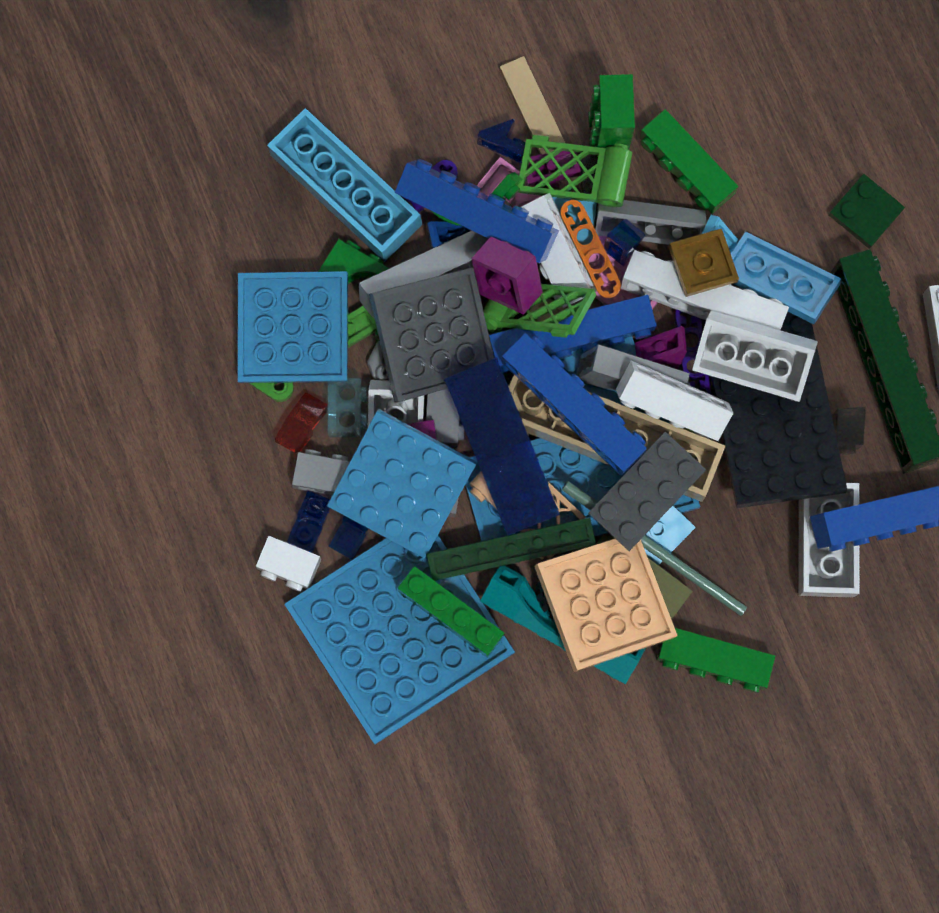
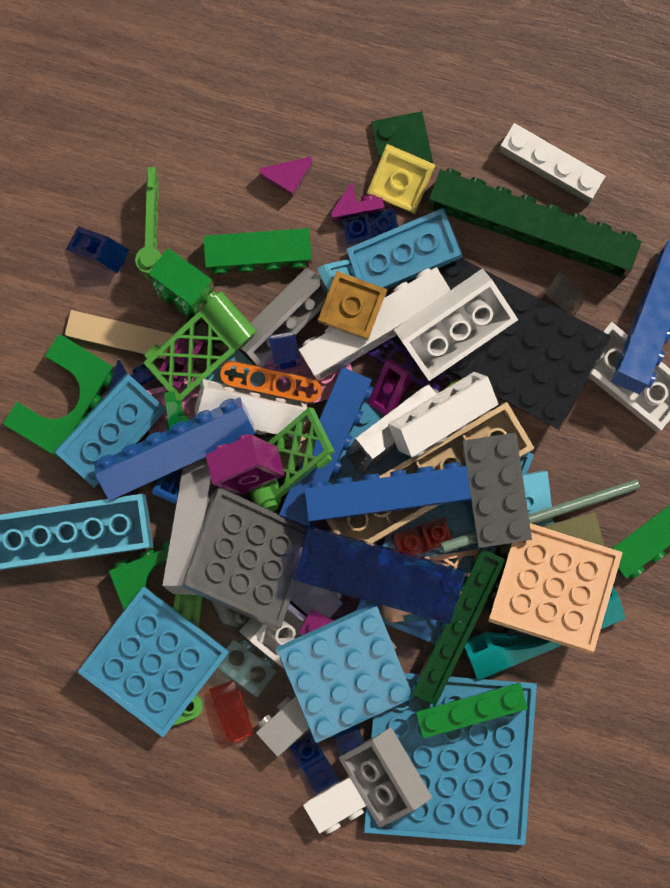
camera: 50 degrees left, 5 degrees up
(342, 584) = (385, 777): none -> light grey slope
(418, 120) = (92, 376): none -> green arch
(467, 153) = (113, 424): none -> dark azure plate
(561, 467) = (422, 538): none -> clear red slope
(588, 40) = (98, 249): none -> clear blue slope
(651, 55) = (149, 255): none -> bright green piece
(767, 141) = (287, 175): none -> magenta slope
(776, 232) = (367, 226): none -> clear blue slope
(779, 208) = (348, 206): none -> magenta slope
(837, 230) = (401, 178): none -> light yellow plate

